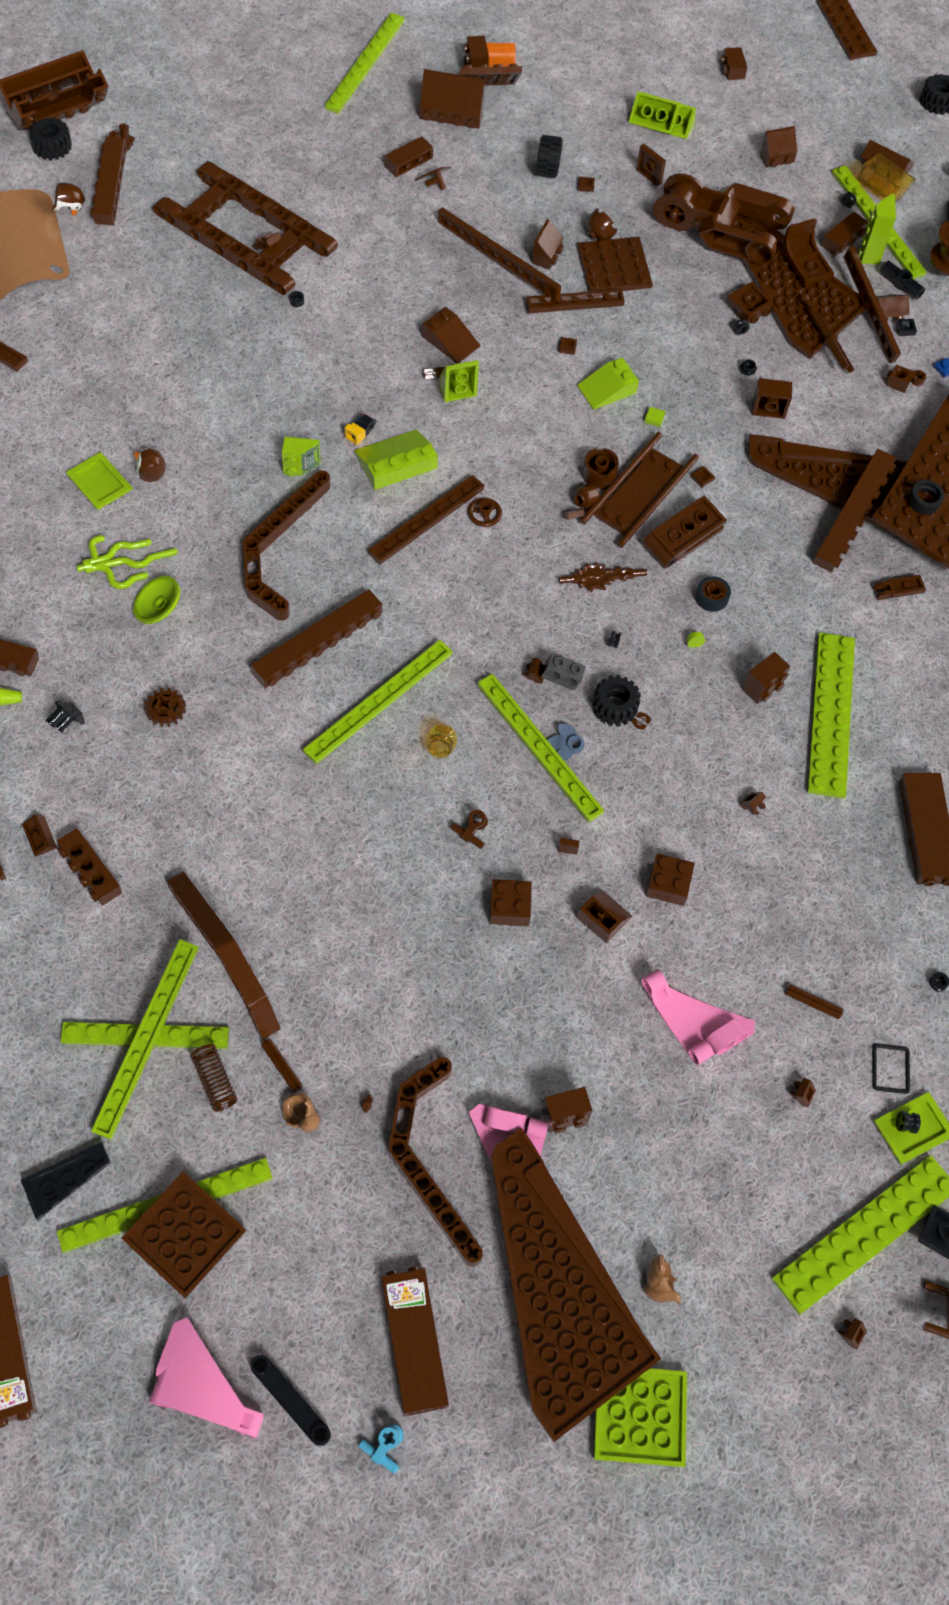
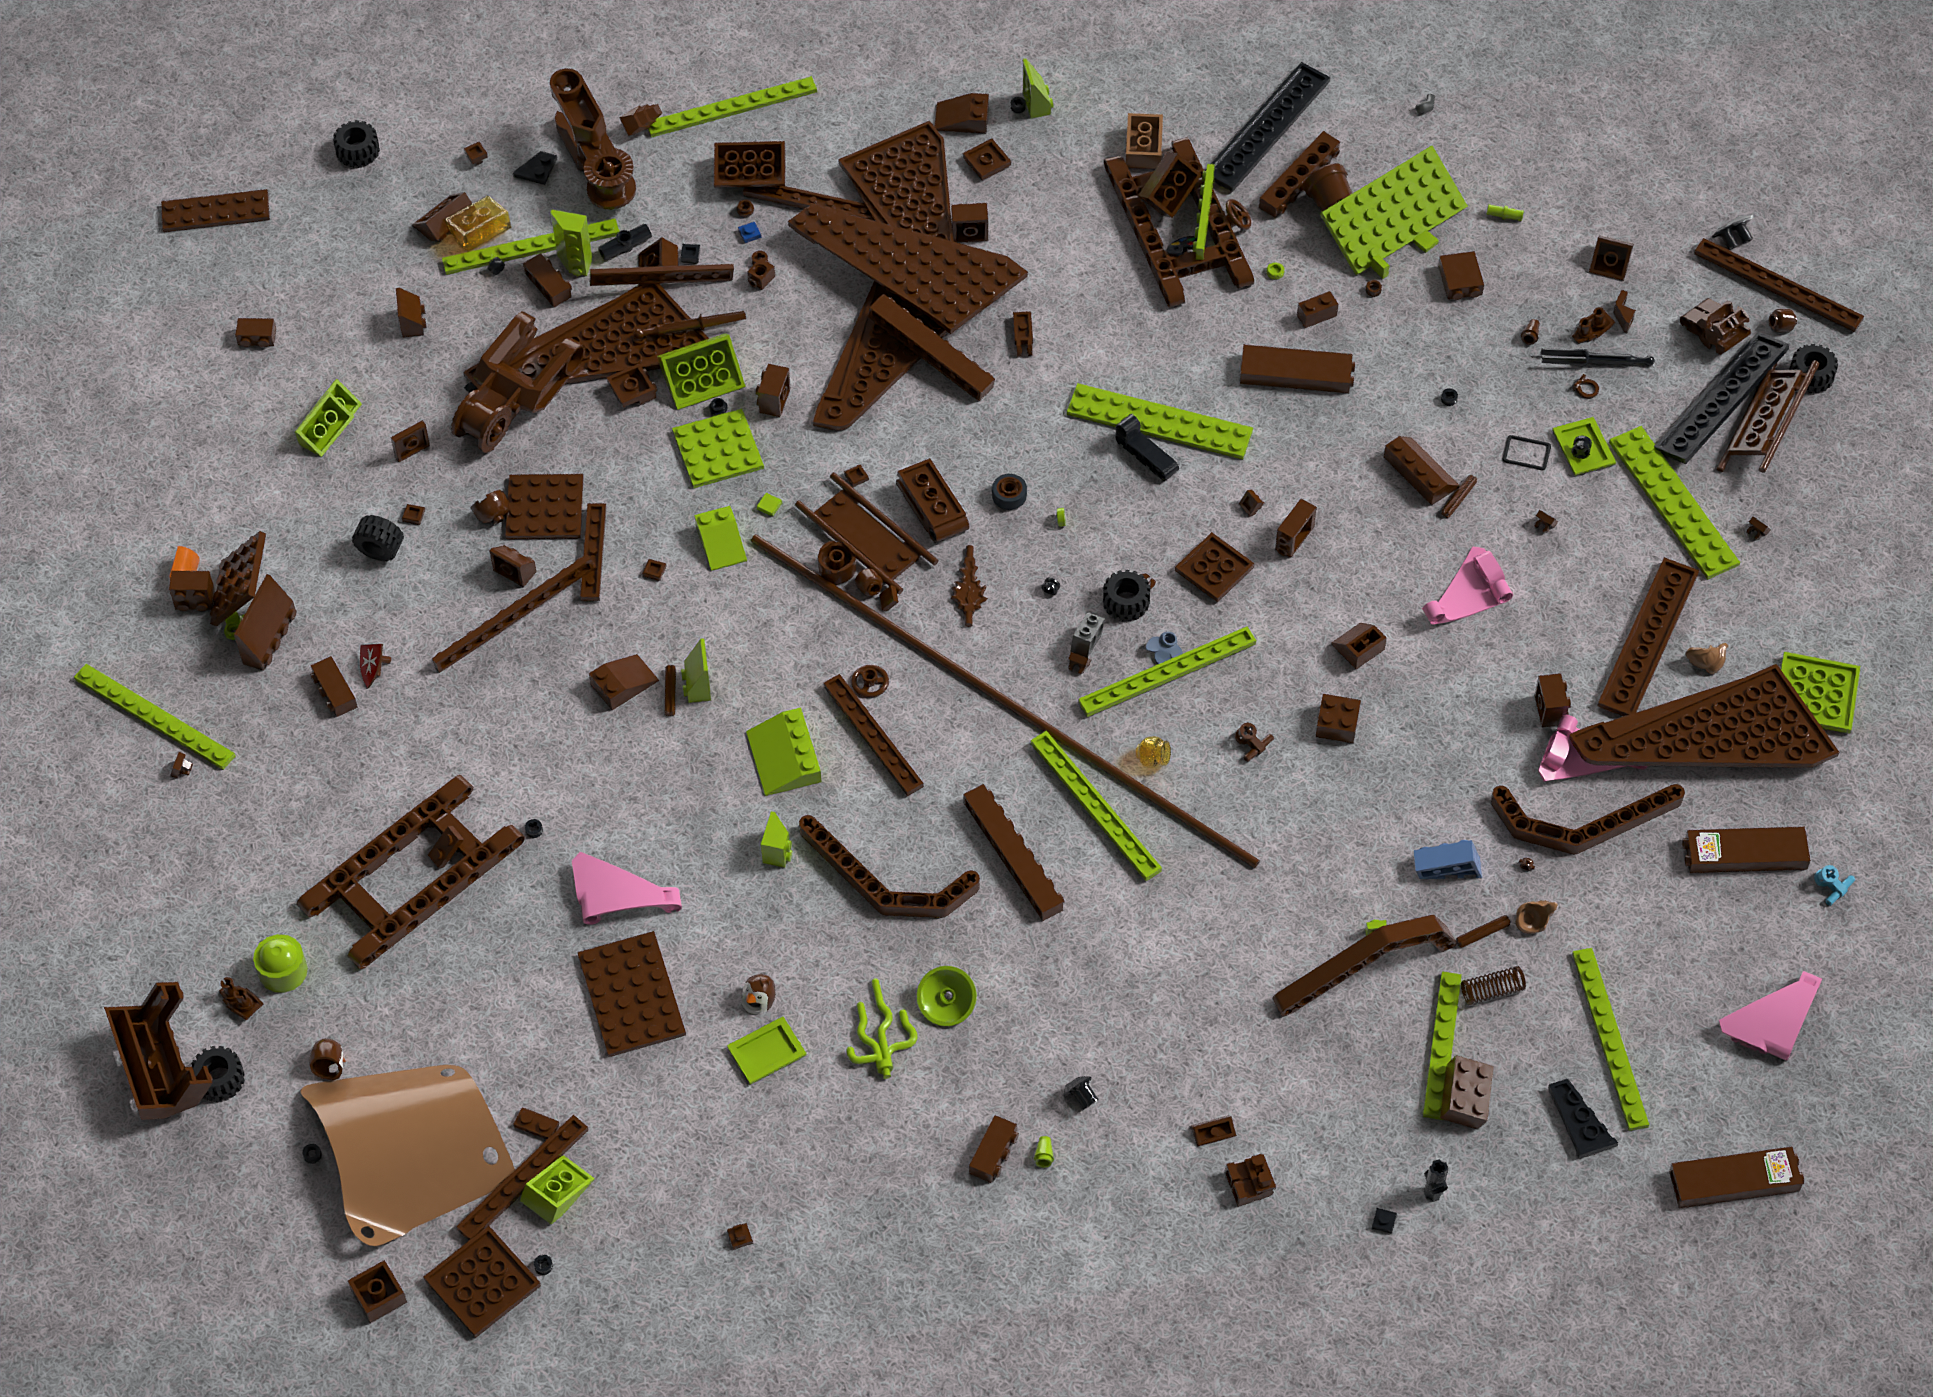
camera: 75 degrees left, 5 degrees down
(21, 336) = (536, 1123): none -> reddish brown plate
(75, 842) = (1281, 1063): reddish brown brick -> none
(83, 1058) = (1467, 1092): none -> reddish brown brick
(109, 180) = (308, 1008): reddish brown brick -> none
(145, 1040) = (1451, 1035): lime plate -> none
(147, 383) = (631, 994): none -> reddish brown plate
(148, 158) = (280, 963): none -> lime piece
(161, 713) = (1077, 1002): reddish brown gear -> none
(184, 1234) = (1642, 1019): reddish brown plate -> none
(236, 355) = (609, 889): none -> bright pink panel
(271, 959) = (1373, 925): none -> lime plate
(290, 1400) = (1791, 951): black piece -> none
(321, 79) = (181, 766): none -> reddish brown tile
(355, 1022) = (1448, 859): none -> medium blue wedge
(359, 428) = (739, 783): leg -> none
(470, 636) = (1007, 702): none -> reddish brown piece
(568, 846) = (1282, 661): reddish brown tile -> none
(669, 776) = (1214, 567): none -> reddish brown plate
(670, 879) = (1328, 584): reddish brown brick -> none
(676, 1215) = (1648, 638): none -> reddish brown plate
(705, 373) = (718, 448): none -> lime plate
(726, 839) = (1295, 528): none -> reddish brown window
(741, 327) = (662, 402): black bush -> none
(766, 678) = (1121, 462): reddish brown brick -> none
(779, 345) = (701, 371): none -> lime slope
(788, 704) = (1144, 449): none -> black beam
(803, 254) = (584, 319): reddish brown bracket -> none
(838, 959) = (1419, 469): none -> reddish brown slope
(921, 506) = (940, 268): black tyre -> none

